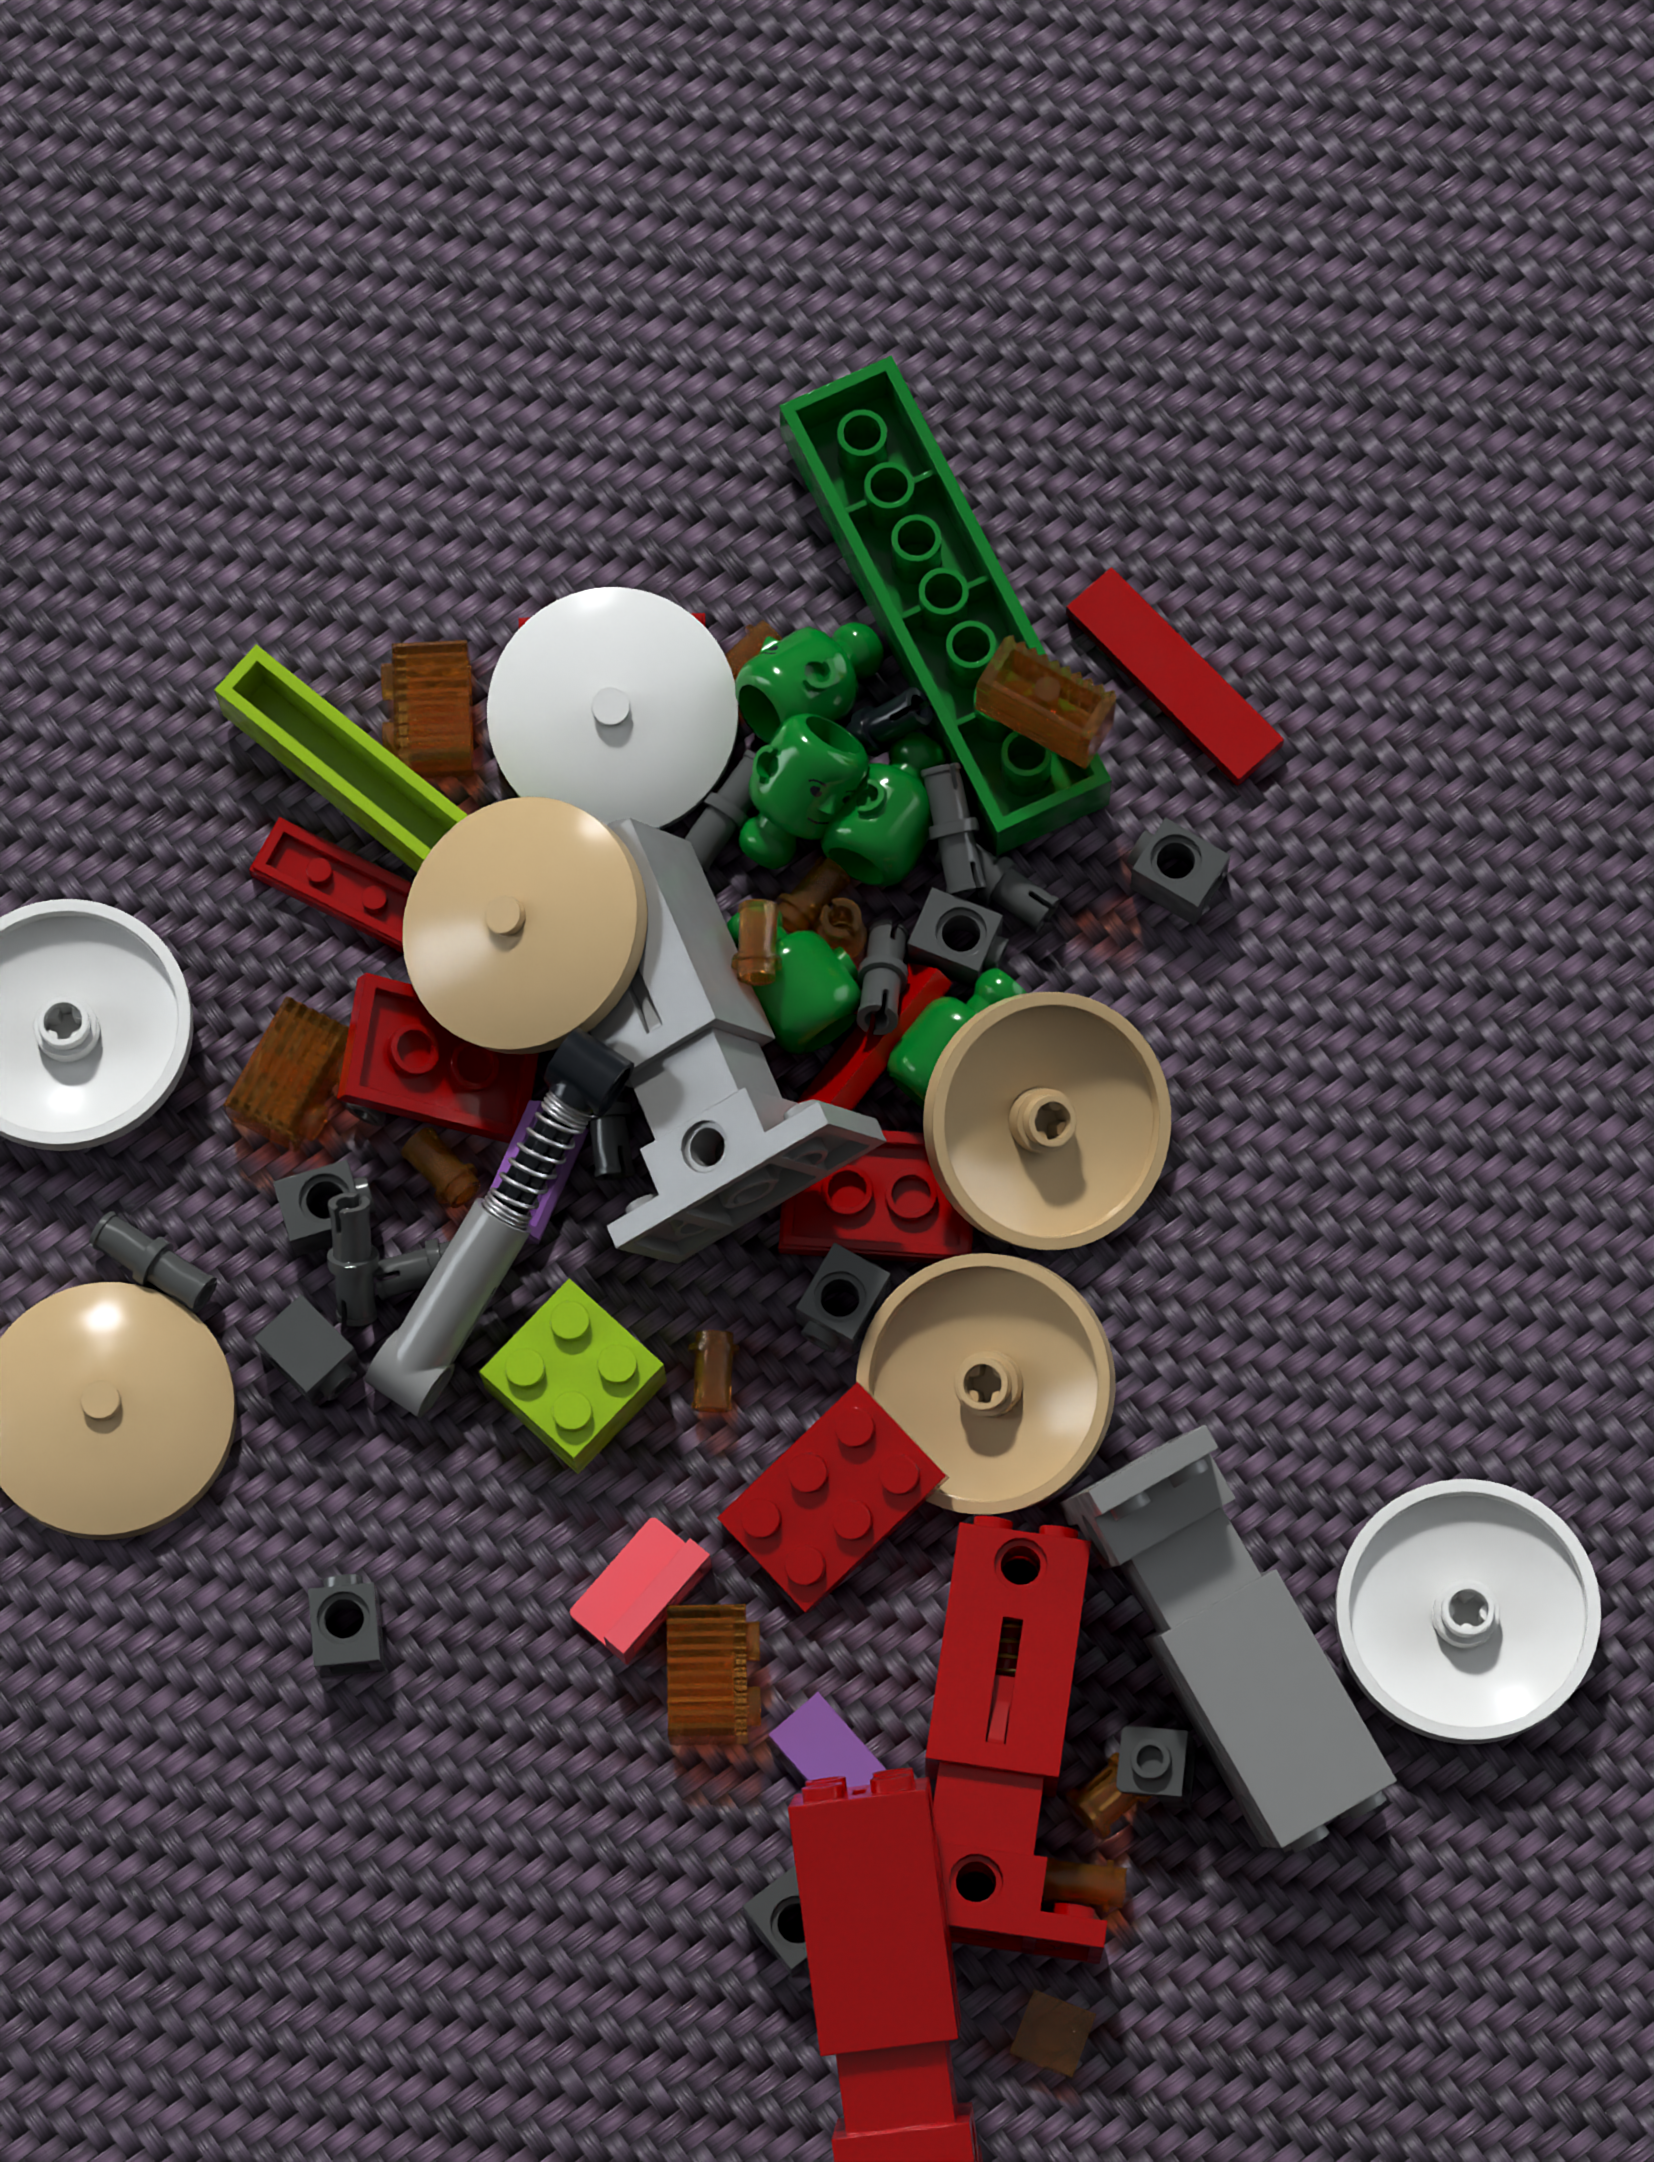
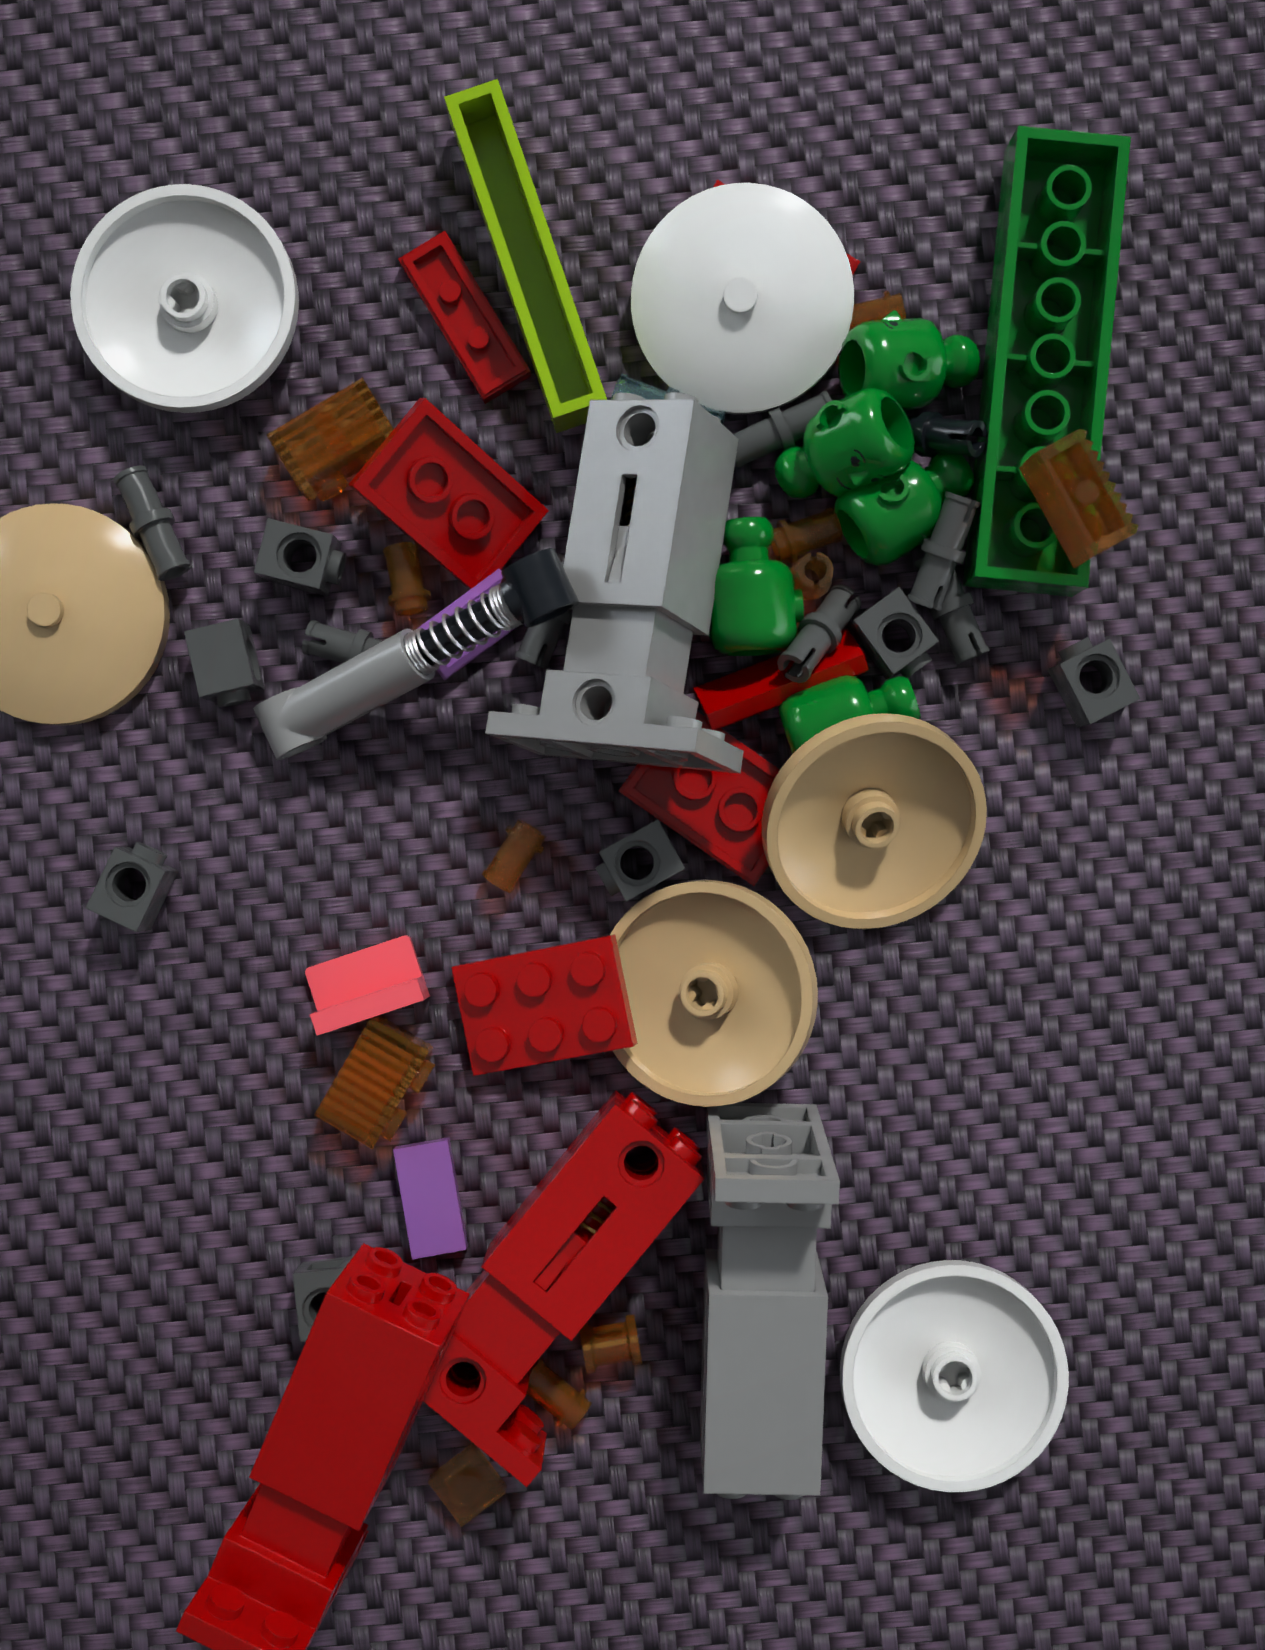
camera: 25 degrees right, 15 degrees up
(352, 1259) = (293, 613): dark grey pin -> none
(430, 707) = (606, 212): clear orange brick -> none
(524, 925) = (566, 435): tan dish -> none
(573, 1376) = (406, 799): lime brick -> none
(756, 955) = (731, 564): clear orange pin -> none
(1158, 1765) = (655, 1350): dark grey bracket -> none
(1174, 676) = (1183, 525): red tile -> none

